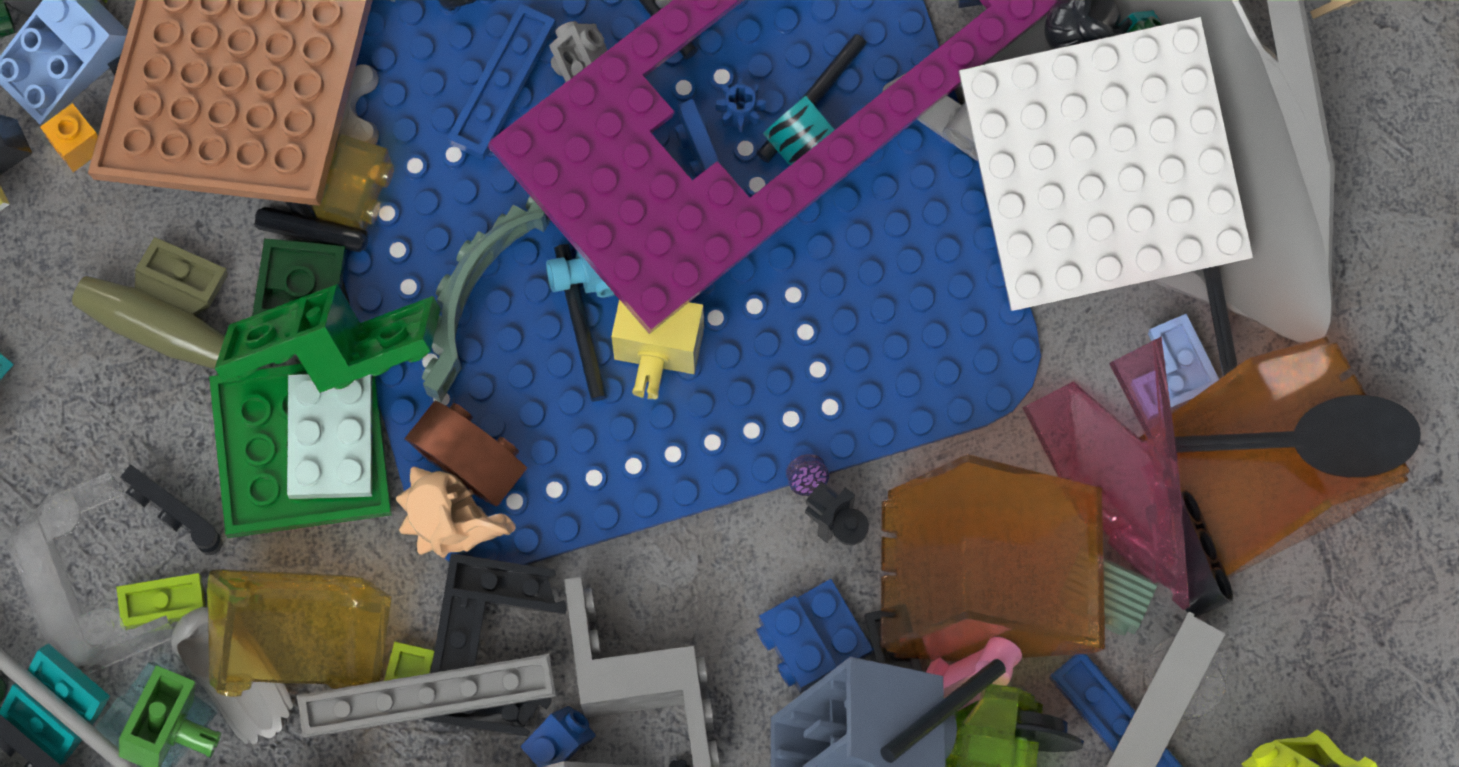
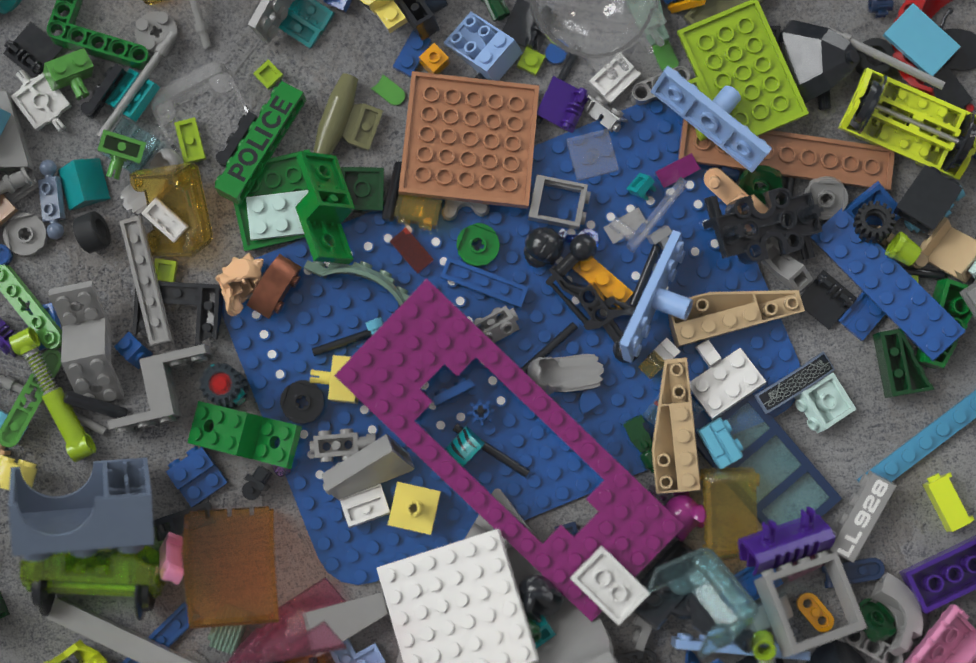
camera: 85 degrees right, 10 degrees up
(53, 182) = (409, 56): none -> blue plate
(53, 444) = (268, 74): none -> lime plate
(118, 229) = (389, 91): none -> bright green piece
(186, 460) = (260, 143): none -> green brick
(311, 650) = (165, 219): none -> white plate
(421, 67) = (471, 234): none -> green plate
(427, 206) = (411, 250): none -> clear red tile
(648, 544) = (224, 386): none -> black plate
(681, 401) = (296, 391): none -> black plate
(743, 532) = (244, 434): none -> green bracket
(779, 365) = (337, 444): none -> light grey brick
(828, 309) = (368, 467): none -> light grey slope
(894, 324) = (365, 506): none -> white plate
(907, 233) = (414, 508): none -> light yellow brick
(942, 710) = (131, 545): black bar -> none
(1090, 344) = (349, 616): none -> light grey slope

